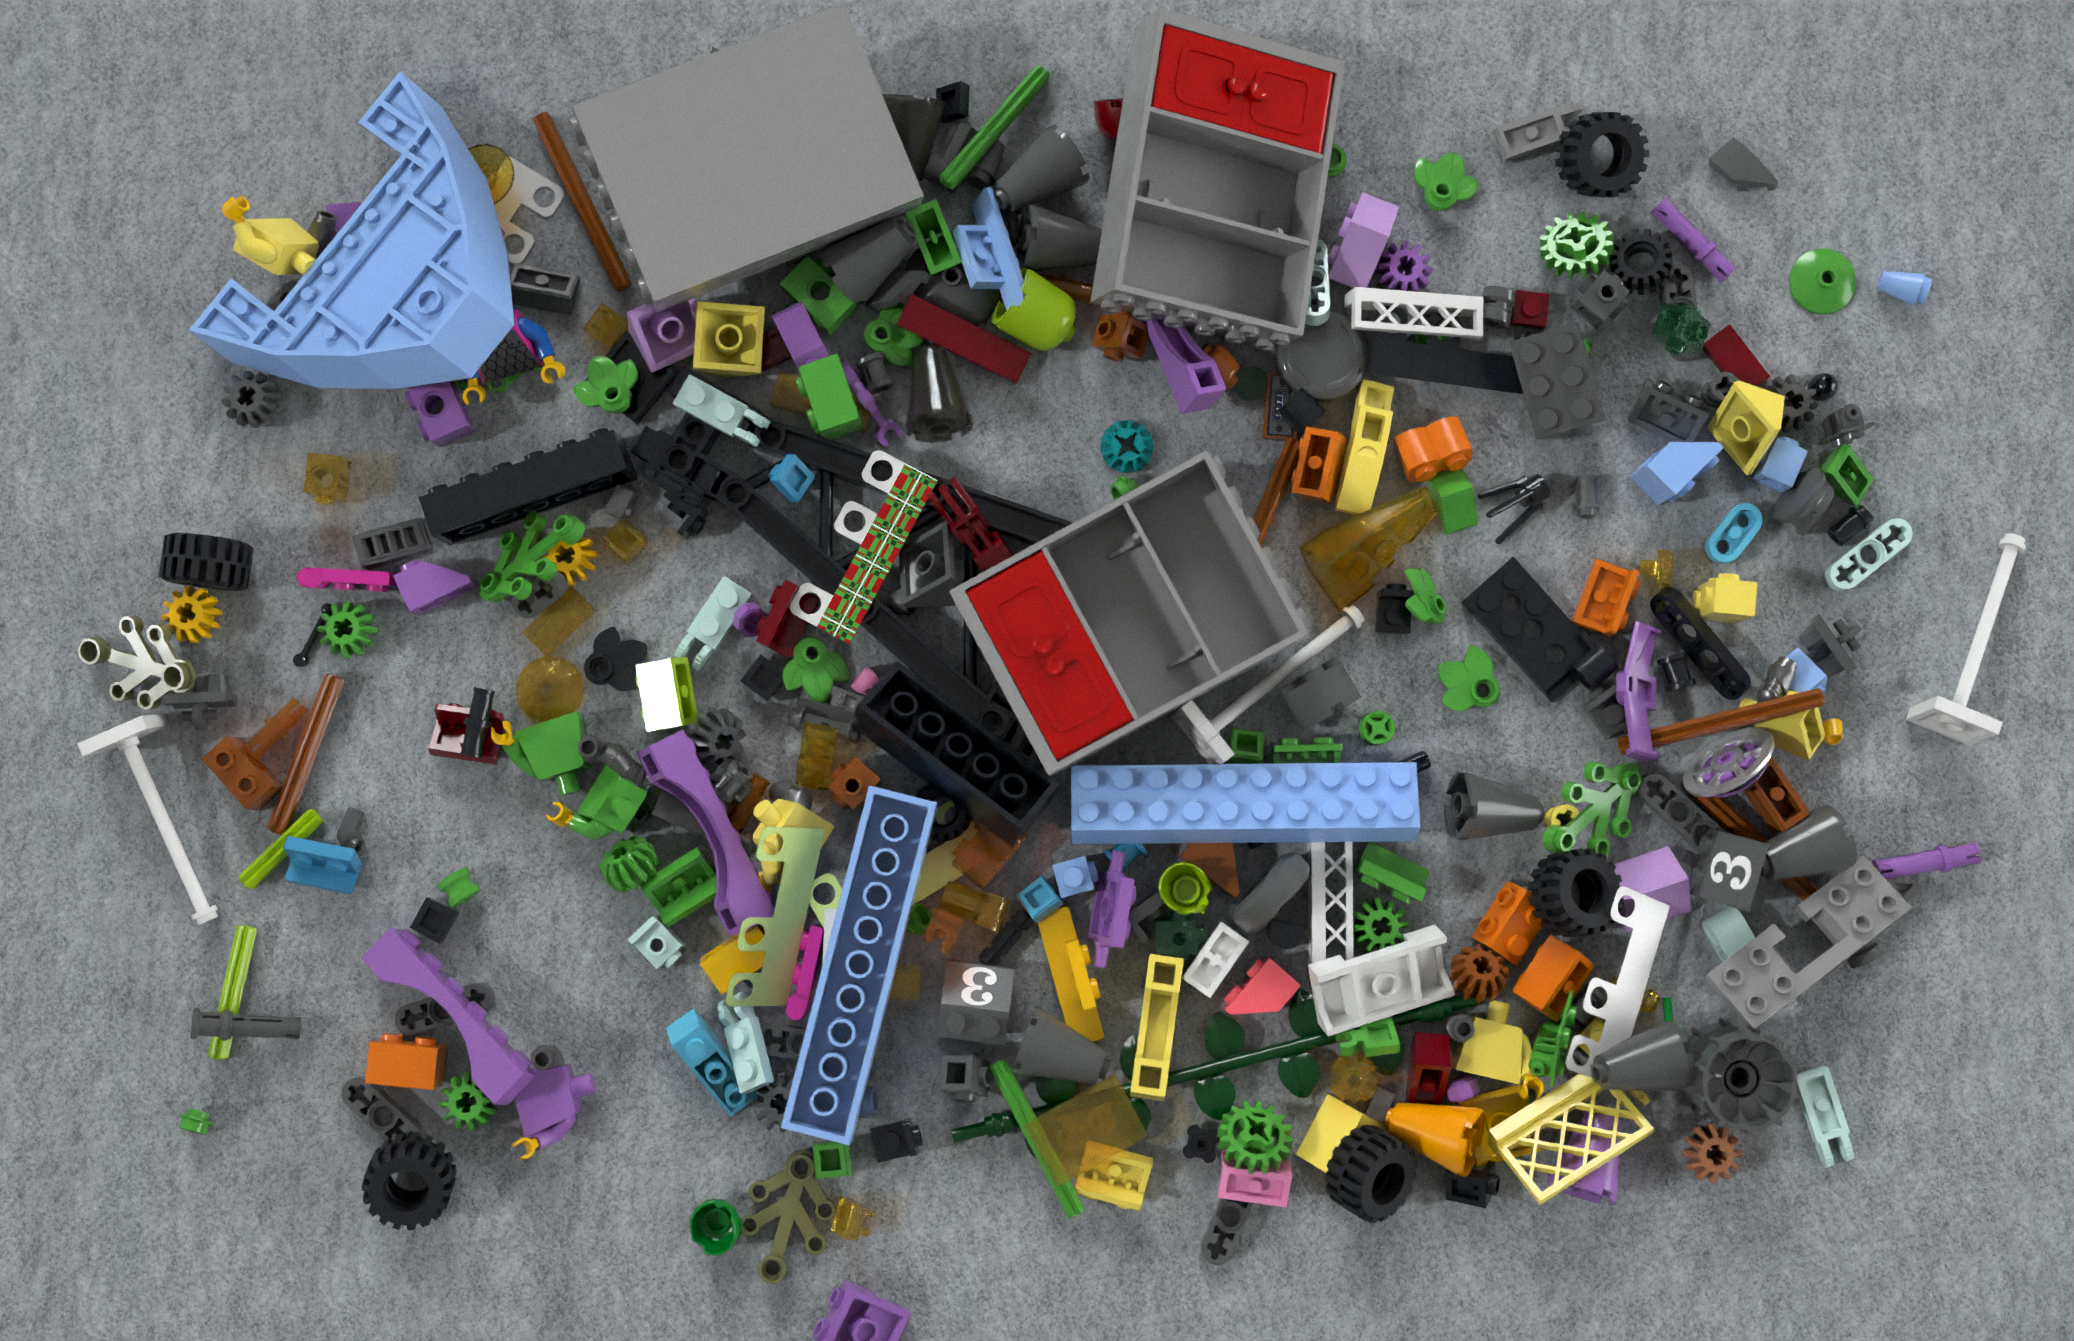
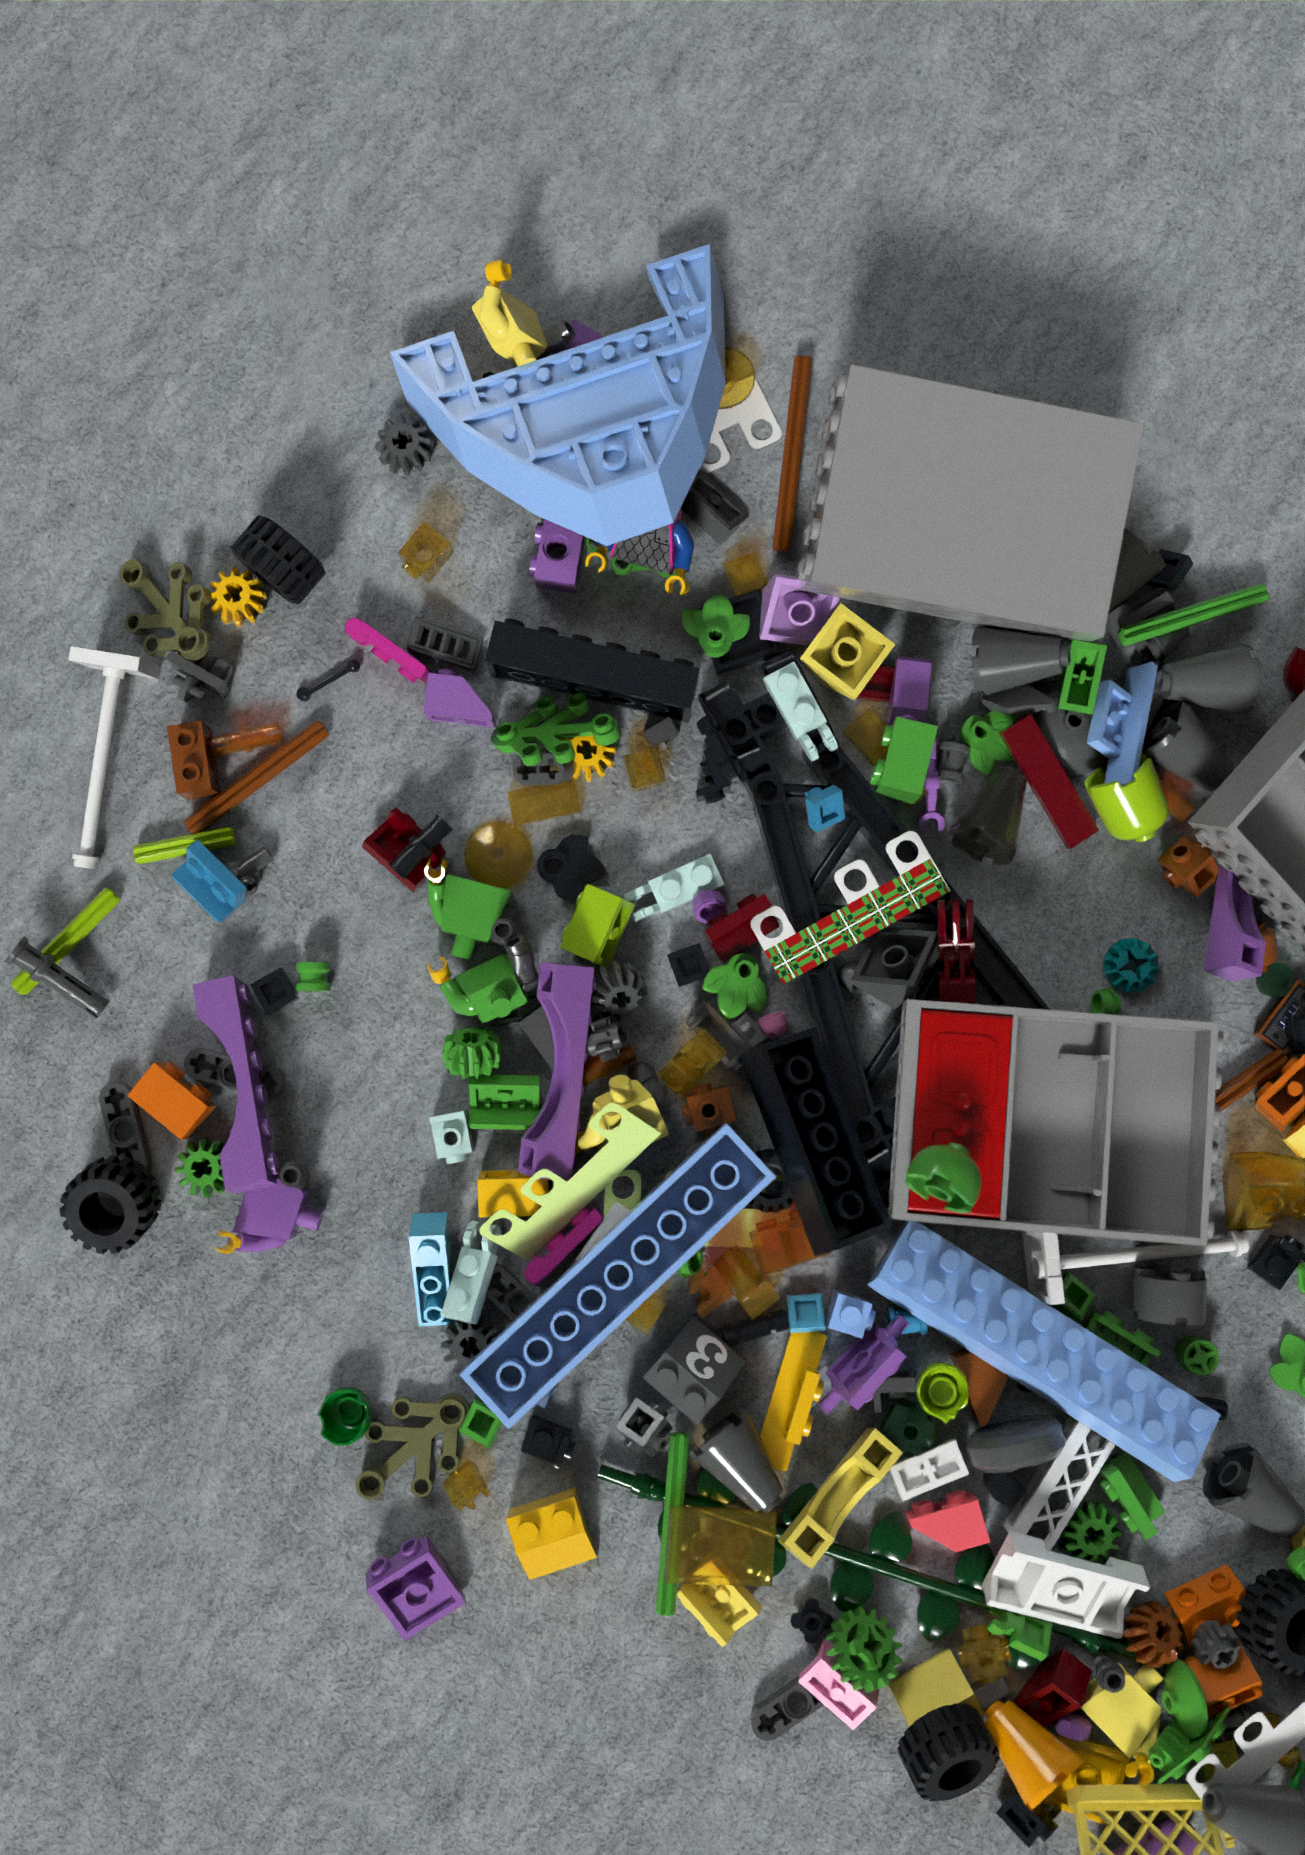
camera: 30 degrees right, 0 degrees up
(338, 639) = (372, 691): bright green gear -> none
(802, 283) = (951, 643): bright green brick -> none
(946, 1213) = (551, 1533): none -> yellow slope
(1064, 711) = (946, 1175): none -> bright green cylinder
(1529, 948) = (1216, 1644): none -> dark grey gear
(1531, 1008) = (1184, 1699): none -> bright green dish

